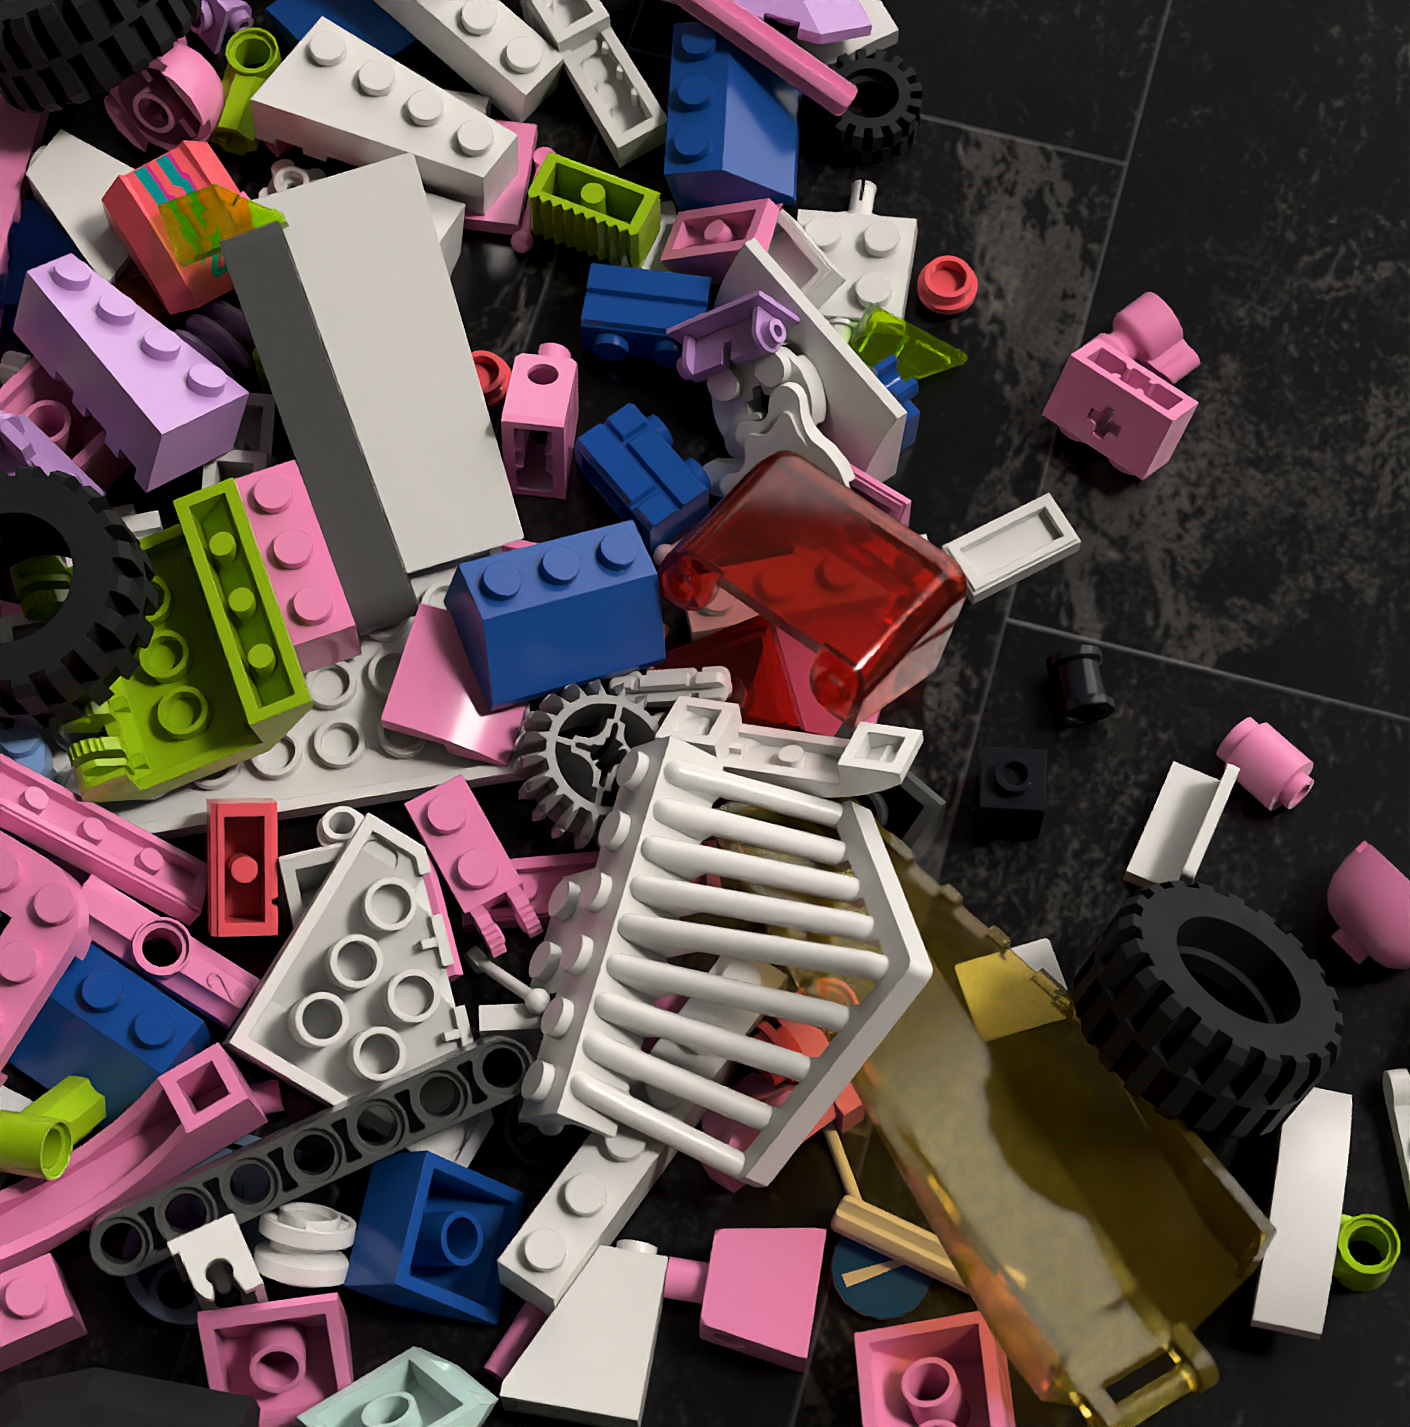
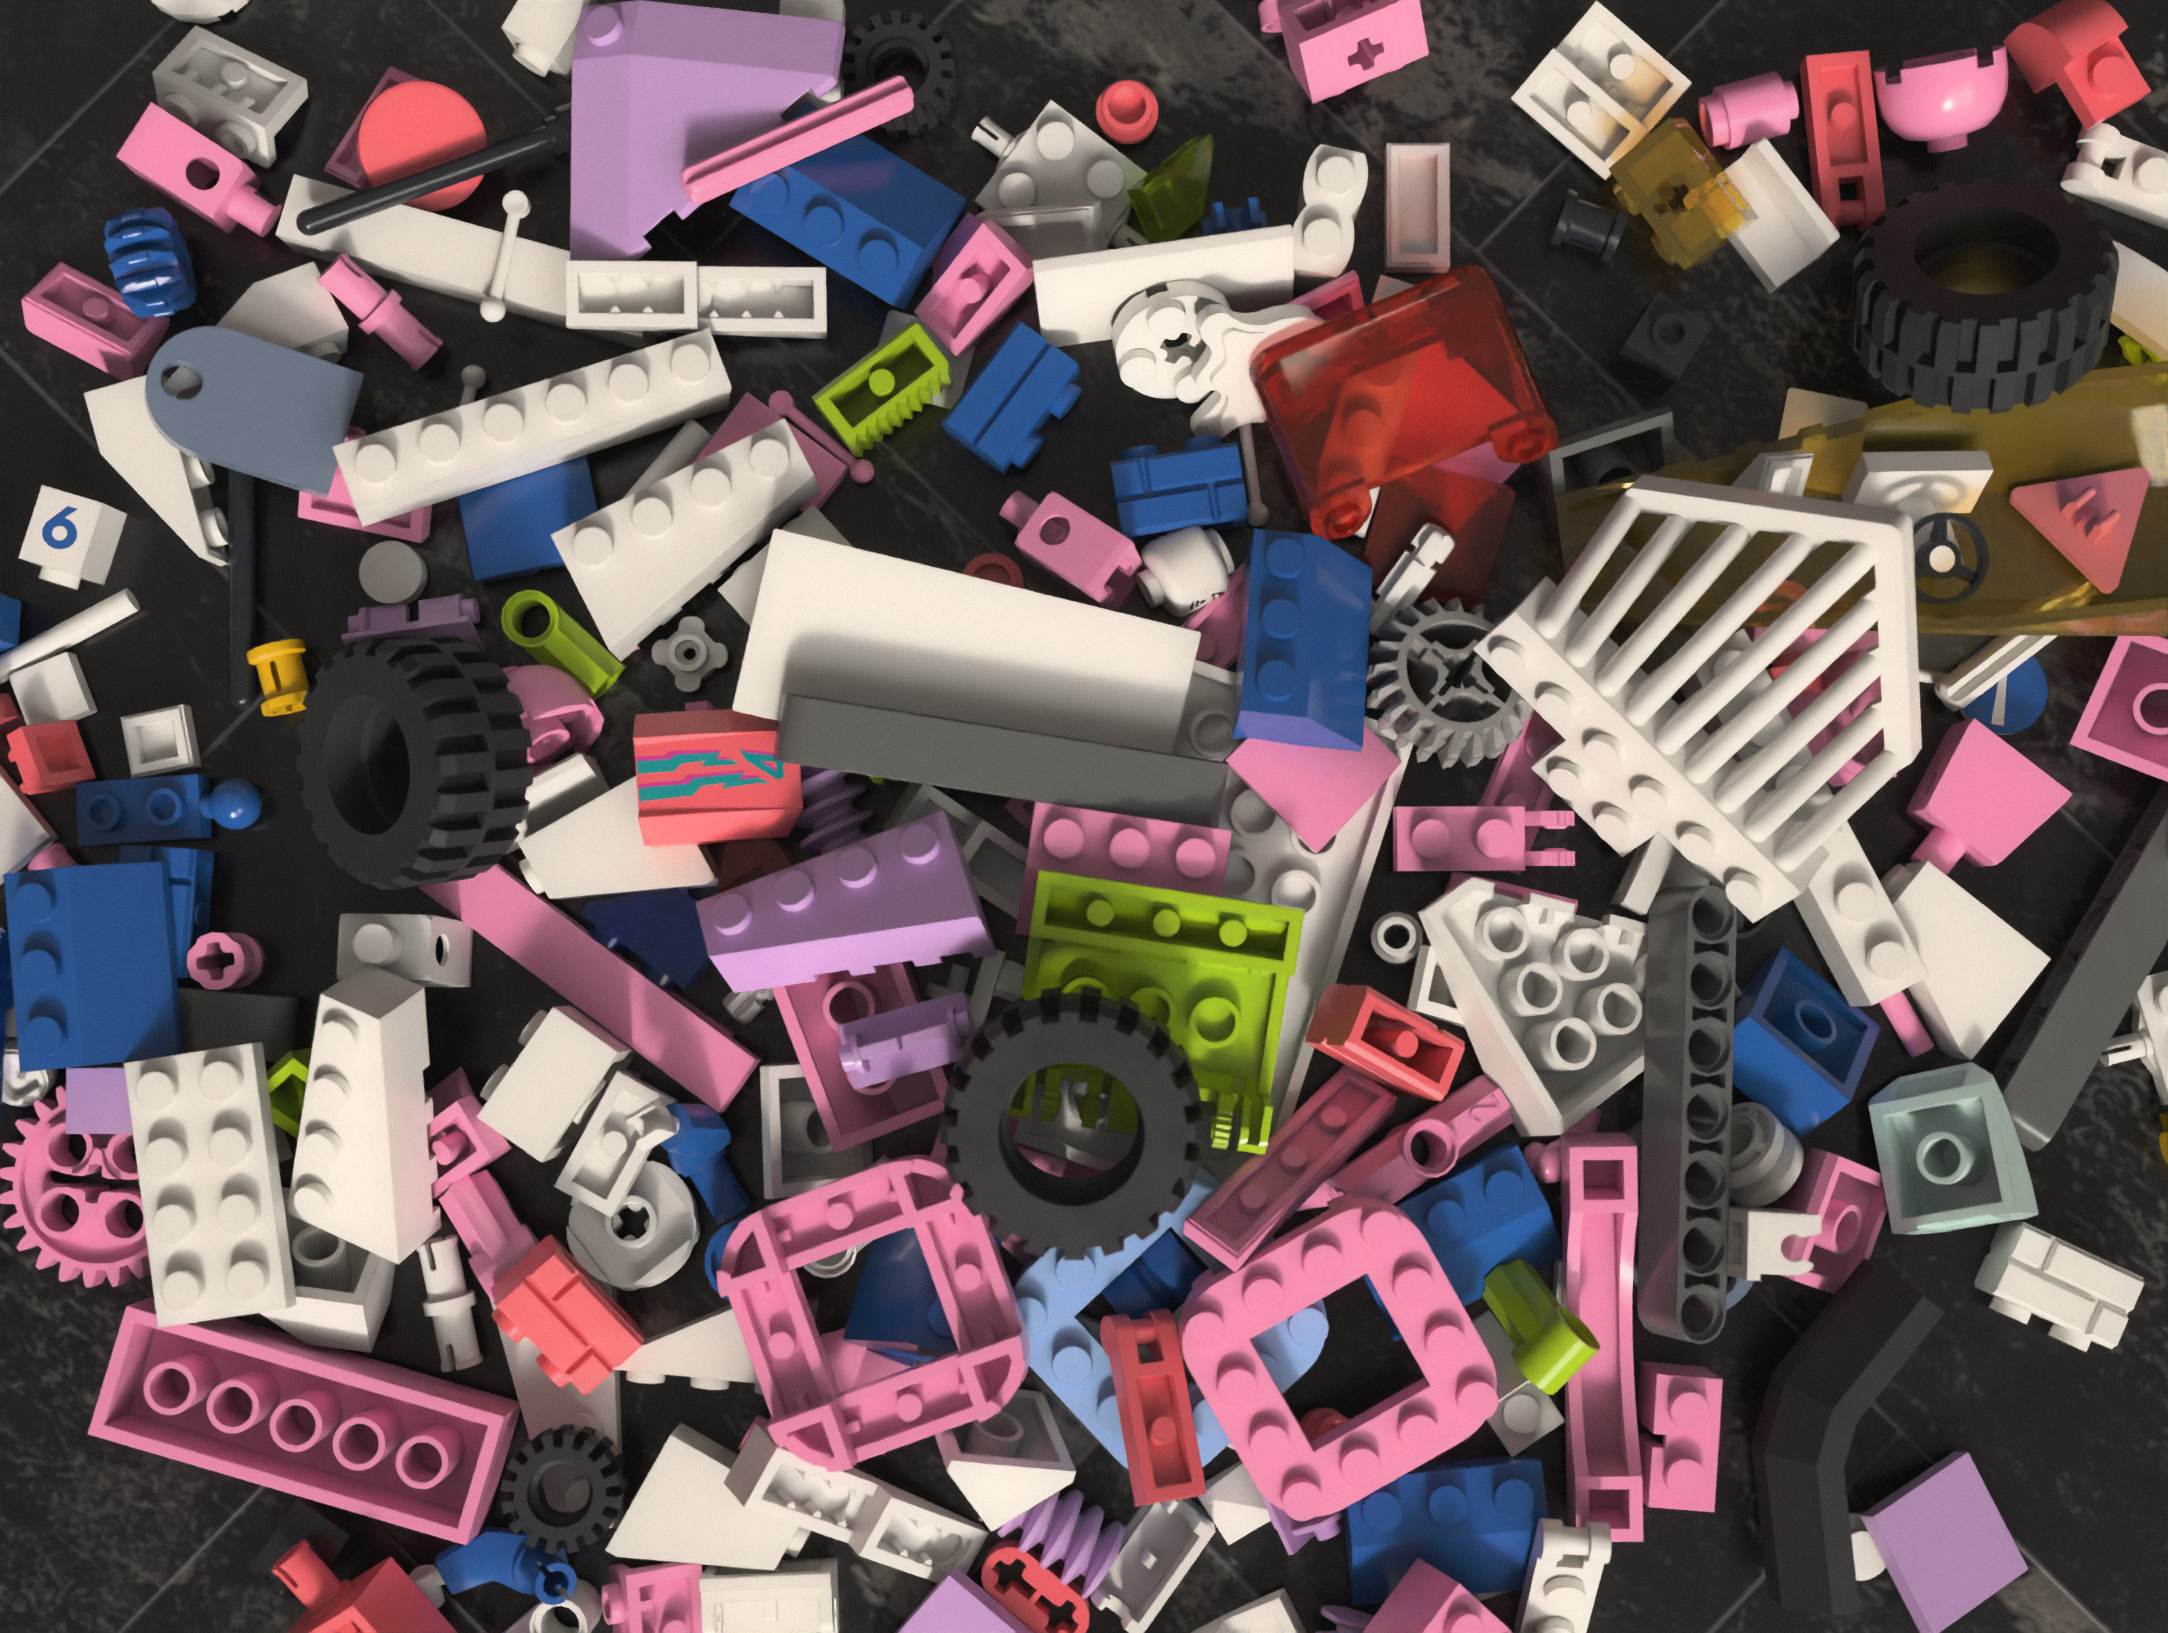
camera: 55 degrees left, 20 degrees up
(109, 132) = (559, 792): none -> white slope
(208, 216) = (742, 750): clear neon green tile -> none
(535, 999) = (1650, 852): white hinge -> none
(575, 505) = (1185, 570): none -> white head
(741, 327) = (1123, 315): lavender hinge -> none
(799, 761) = (1557, 514): white slope -> none
(941, 927) = (1777, 472): none -> white slope
(957, 471) = (1326, 214): none -> white brick
(996, 1071) = (1931, 491): none -> white piece
(1081, 1248) = (2088, 519): none -> bright pink piece
(1153, 740) = (1714, 205): none -> clear yellow brick
(1207, 642) = (1601, 90): none -> white slope
(1299, 852) = (1843, 136): none -> coral plate

